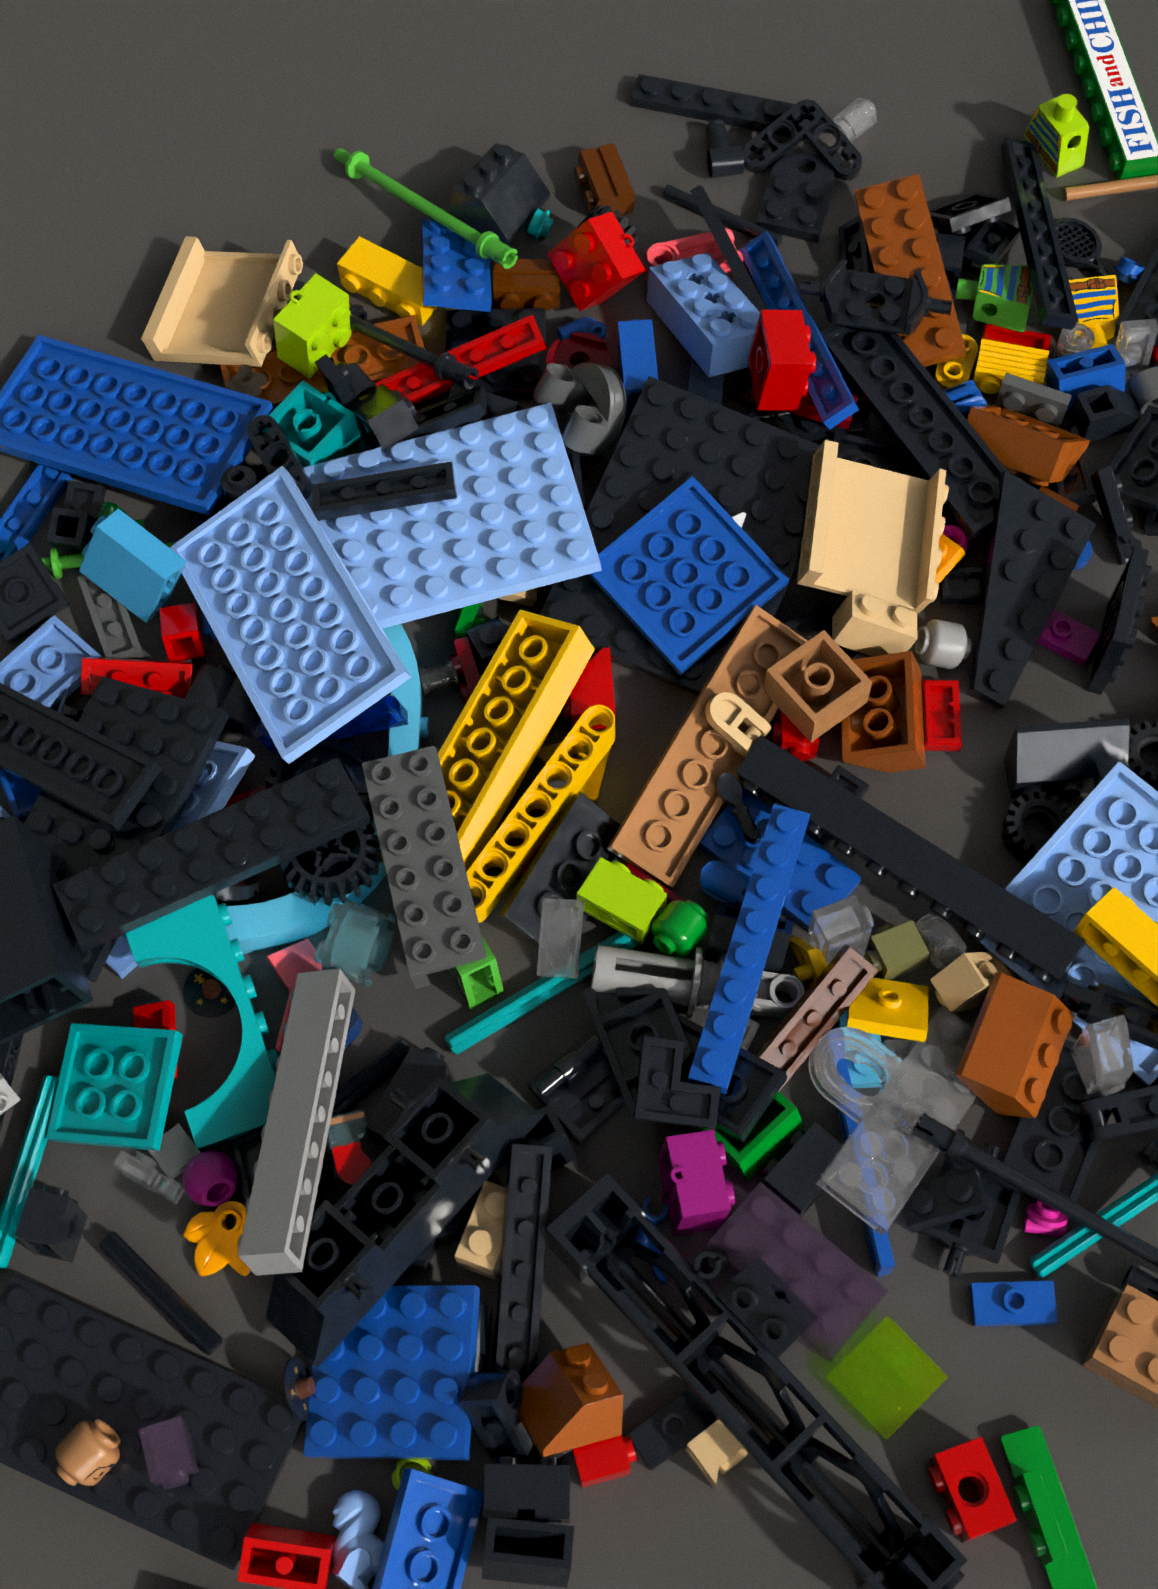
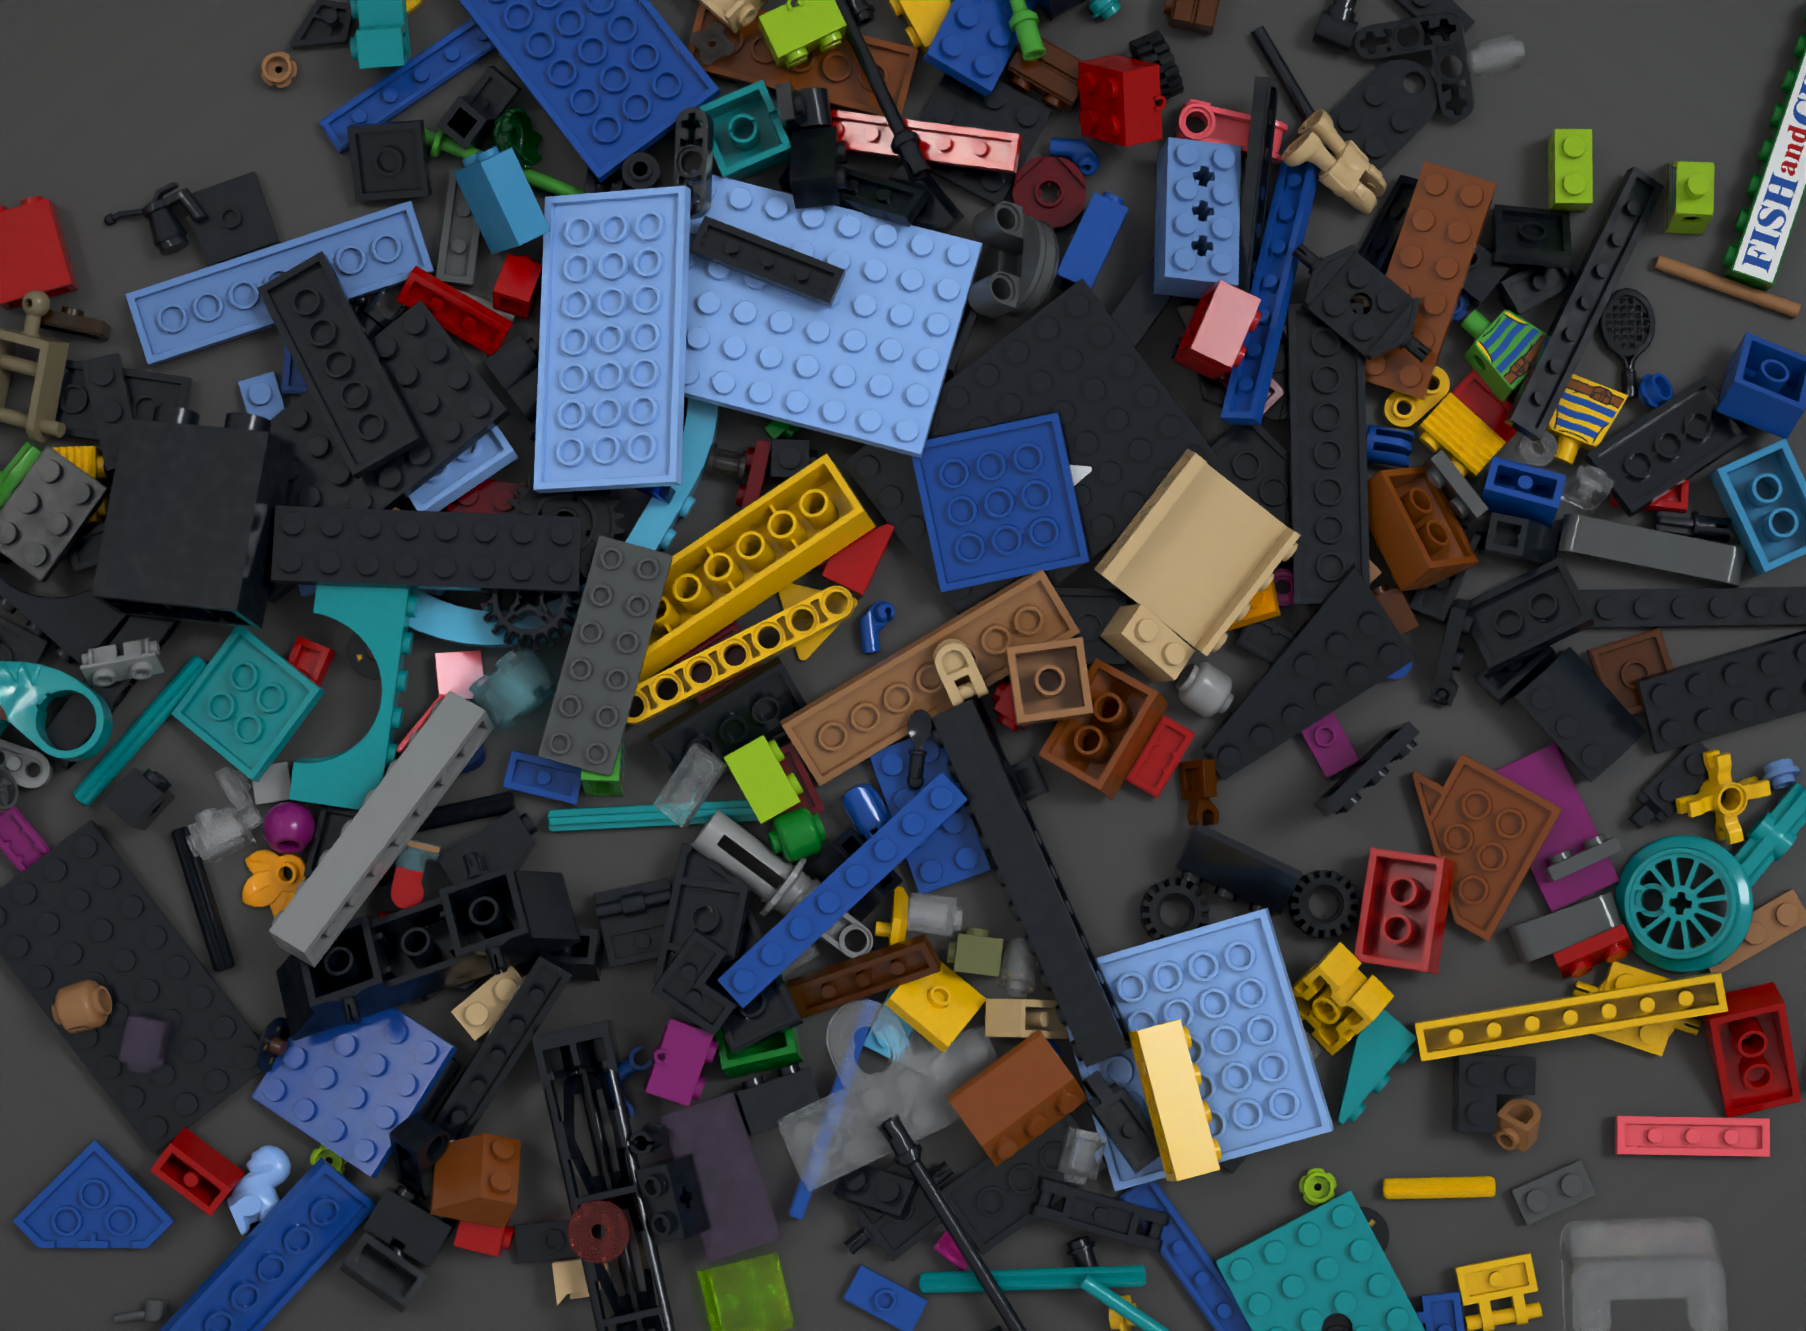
camera: 30 degrees right, 20 degrees up
(146, 1216) = (218, 834): none -> clear brick
(424, 1010) = (543, 778): none -> blue plate
(636, 737) = (872, 623): none -> blue arm
(712, 1393) = (581, 1235): none -> clear red piece
(792, 233) = (1342, 171): none -> tan piece
(960, 161) = (1570, 170): none -> lime brick
(987, 719) = (1198, 786): none -> reddish brown plate

